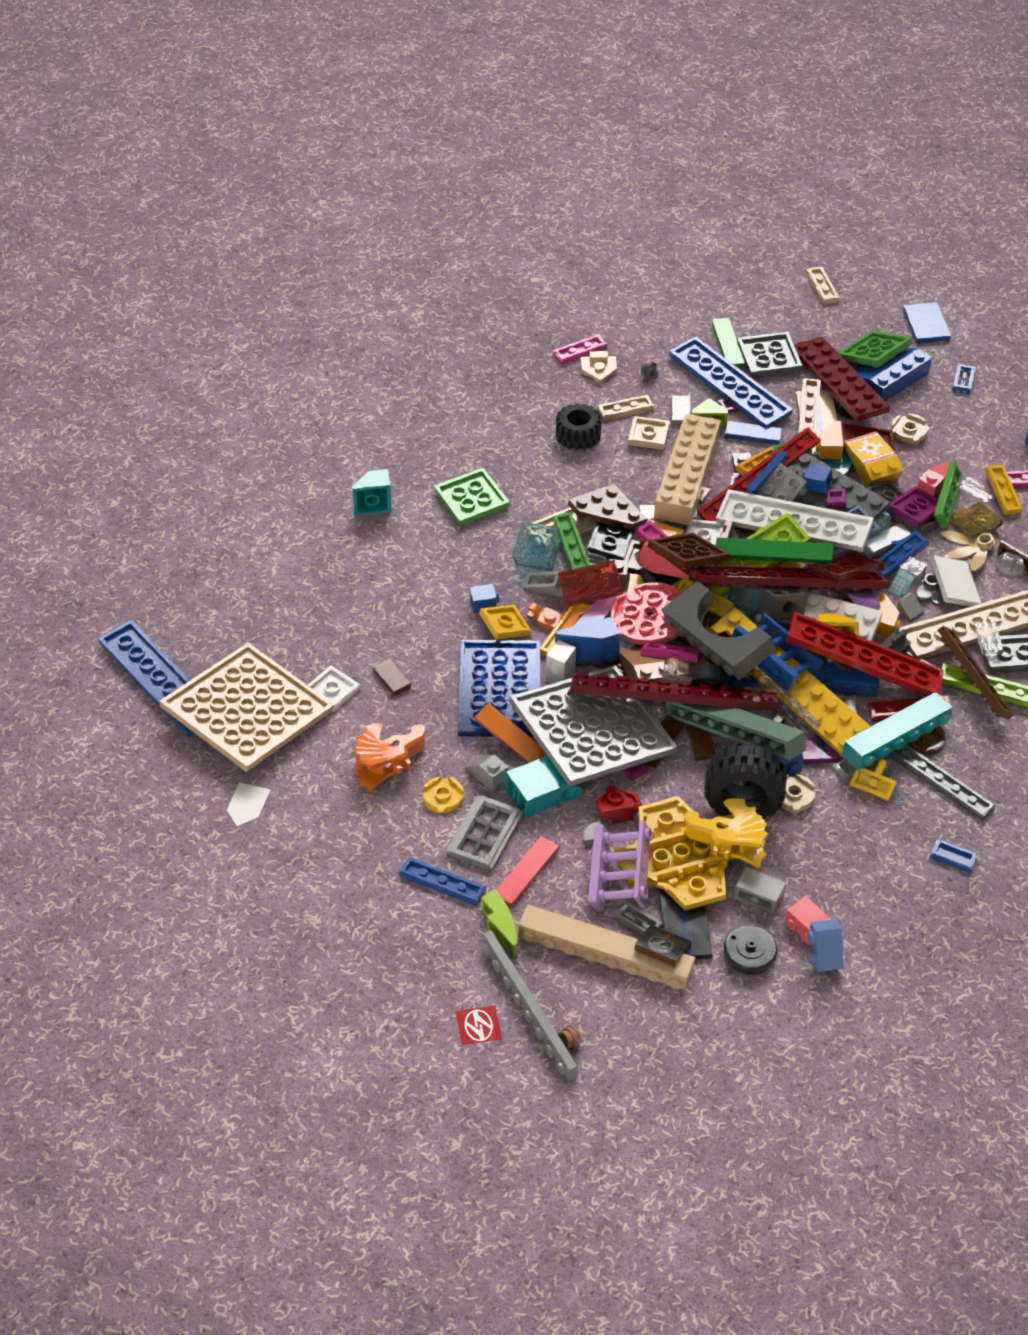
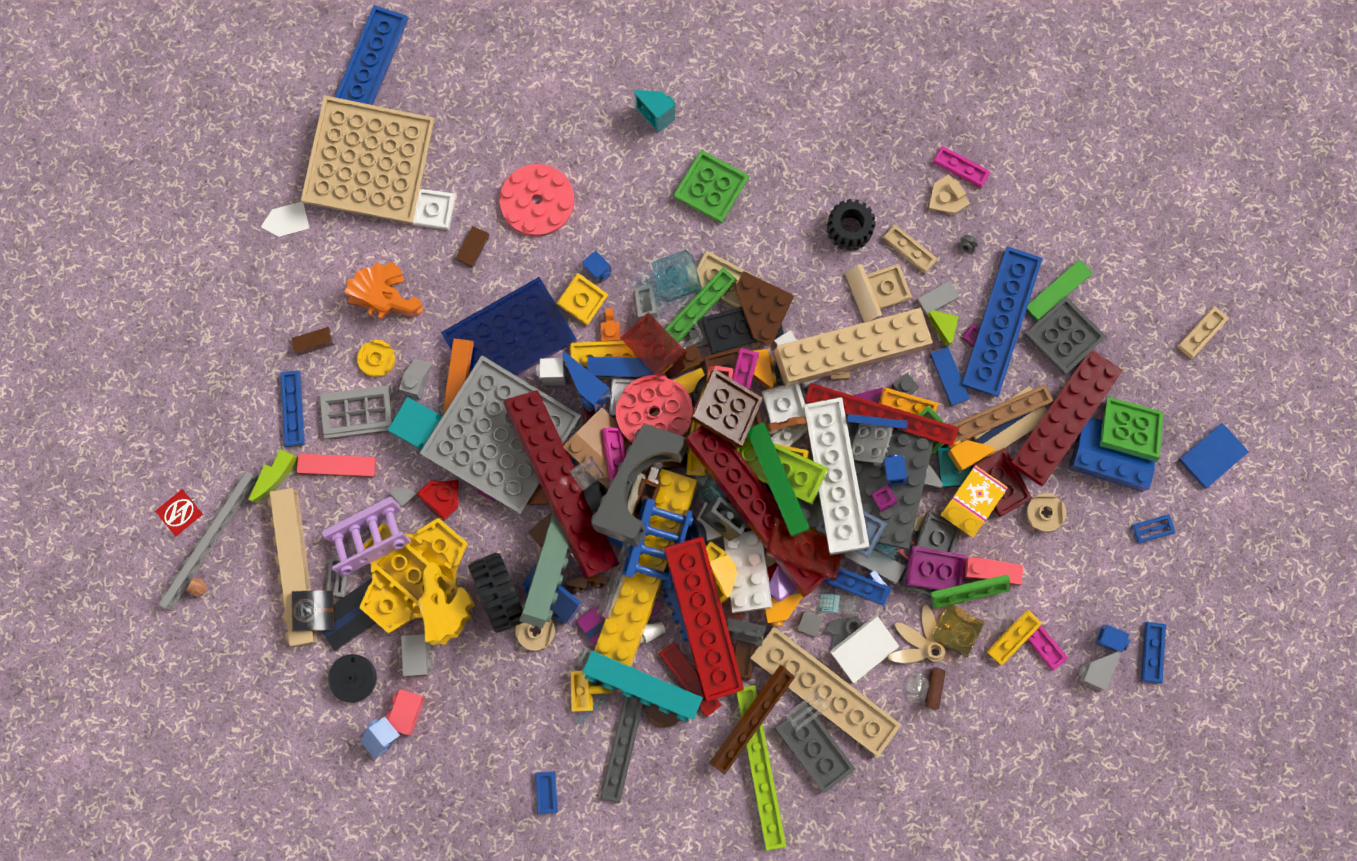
camera: 60 degrees right, 30 degrees up
(366, 617) = (537, 218): none -> coral plate
(387, 834) = (312, 341): none -> reddish brown slope
(643, 447) = (863, 293): none -> tan tile

